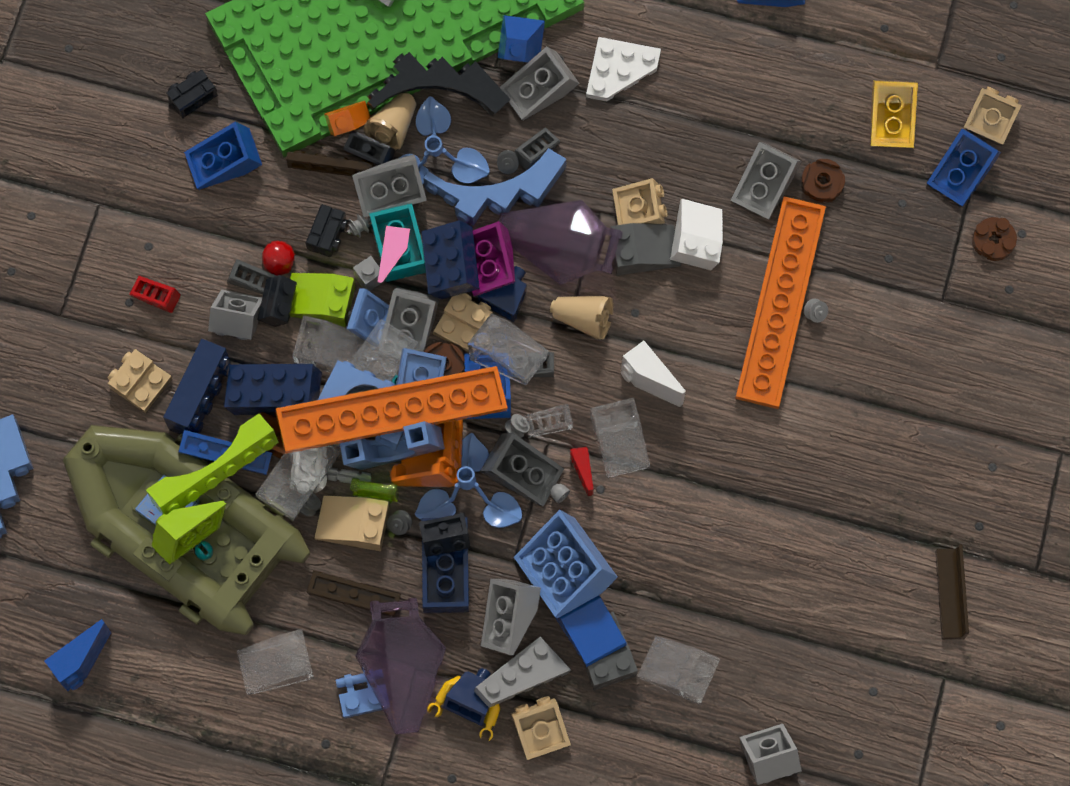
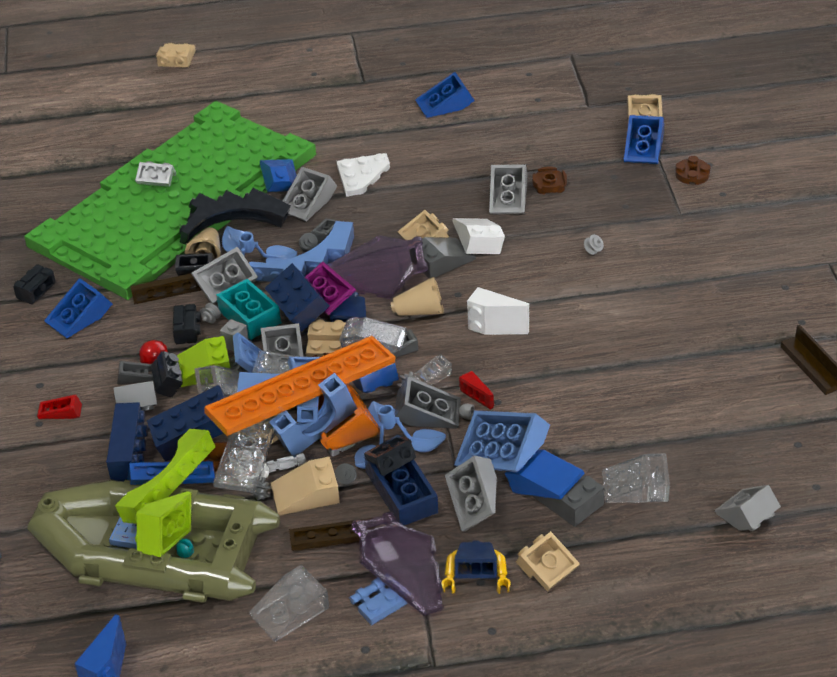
camera: 20 degrees left, 30 degrees down
(138, 380) = (70, 465): tan plate -> none
(347, 118) = (166, 251): orange slope -> none
(374, 490) = (312, 452): clear neon green plate -> none
(393, 248) = (247, 306): bright pink sticker -> none
(522, 673) = (509, 526): light grey wing -> none
(620, 437) = (492, 359): clear slope -> none
(780, 303) = (565, 252): orange plate -> none
(893, 113) = (574, 129): yellow slope -> none

